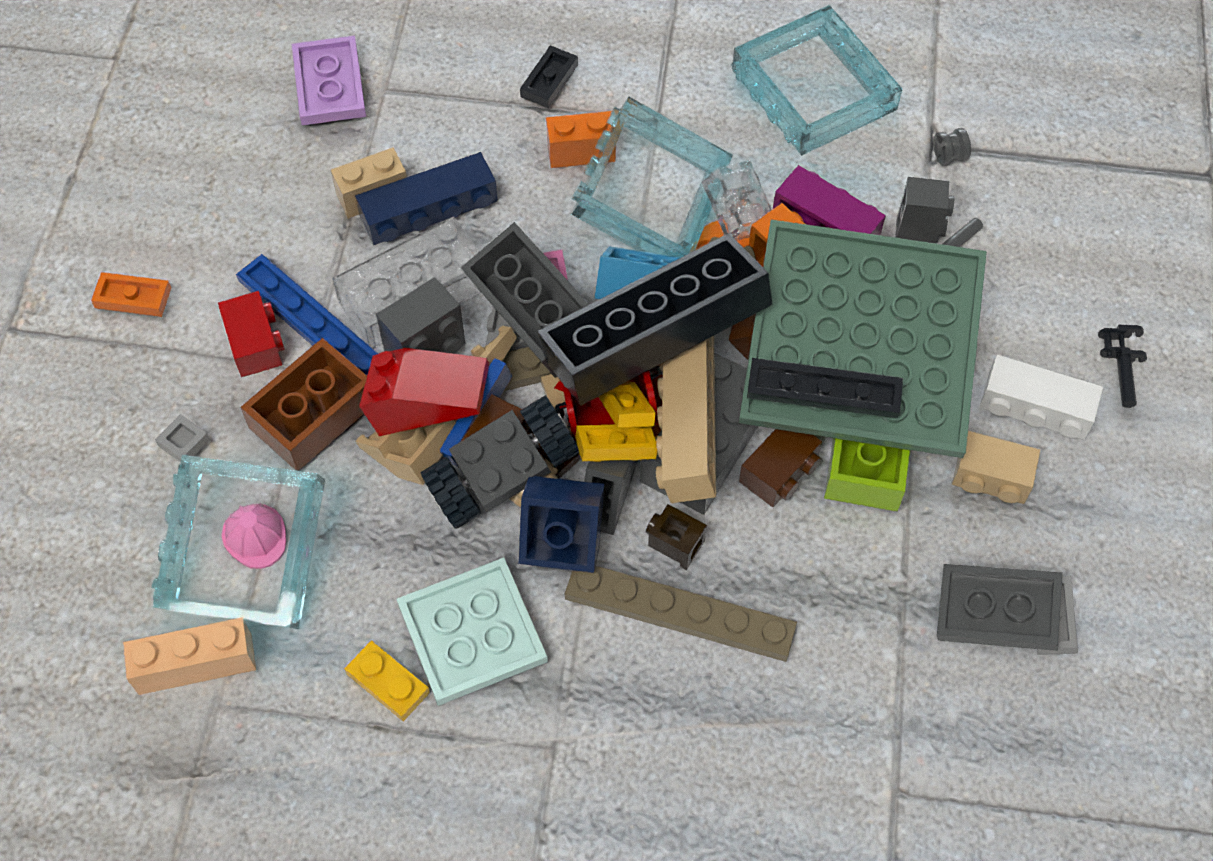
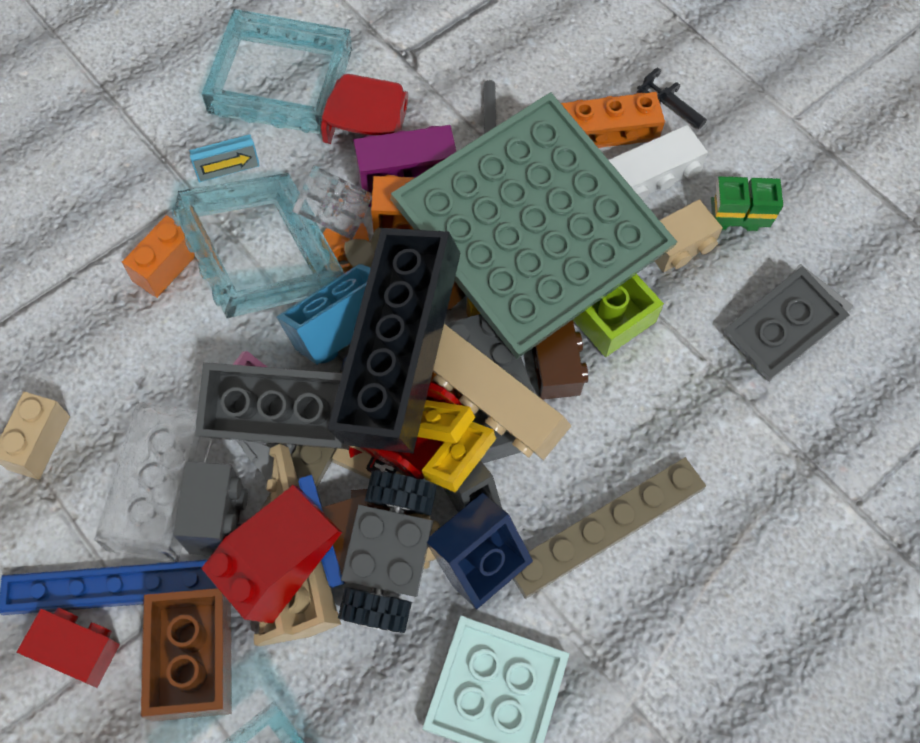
camera: 50 degrees left, 5 degrees up
(427, 198) = (91, 407): dark blue brick -> none
(549, 76) = (80, 230): black plate -> none
(680, 525) = (559, 469): dark brown brick -> none
(704, 109) = (224, 158): none -> panel
(825, 388) = (555, 281): black plate -> none
(846, 156) = (364, 107): none -> red piece
(924, 210) = (459, 103): dark grey brick -> none
(952, 146) = (419, 44): dark grey wheel -> none
(1037, 327) = (619, 119): none -> orange brick
(1078, 498) = (746, 203): none -> green hips

